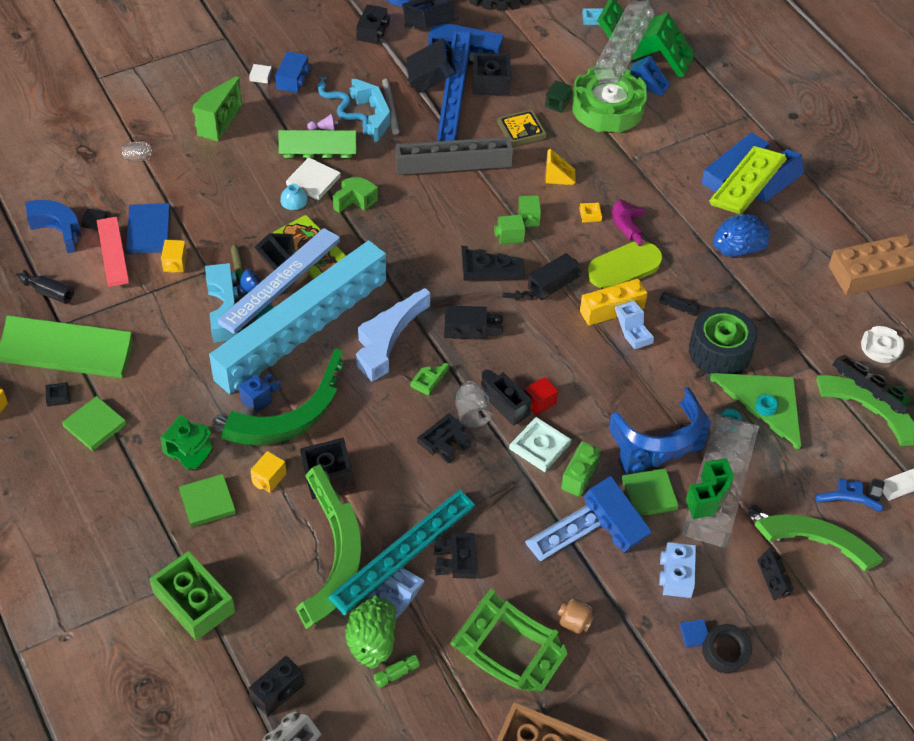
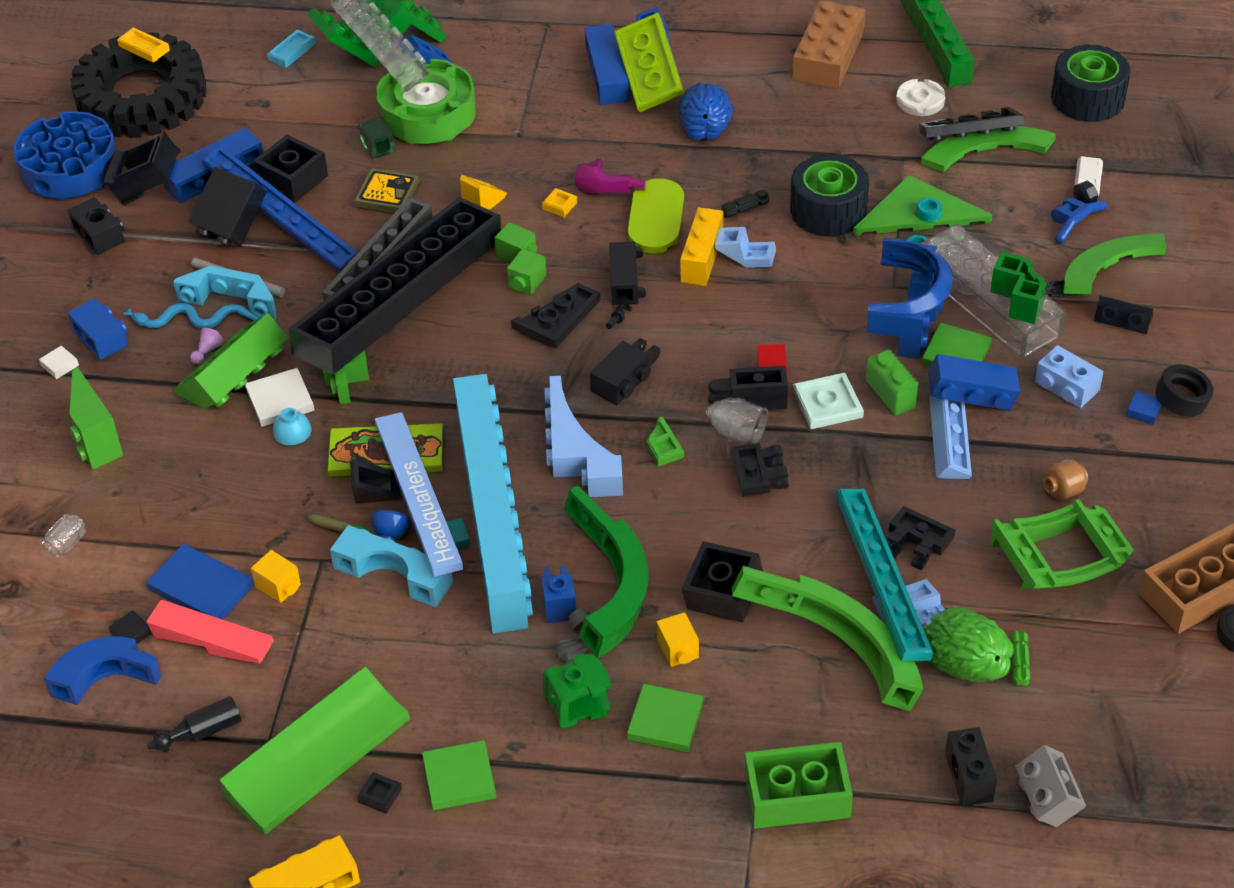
camera: 50 degrees left, 5 degrees down
(434, 173) = (394, 286): none -> black brick

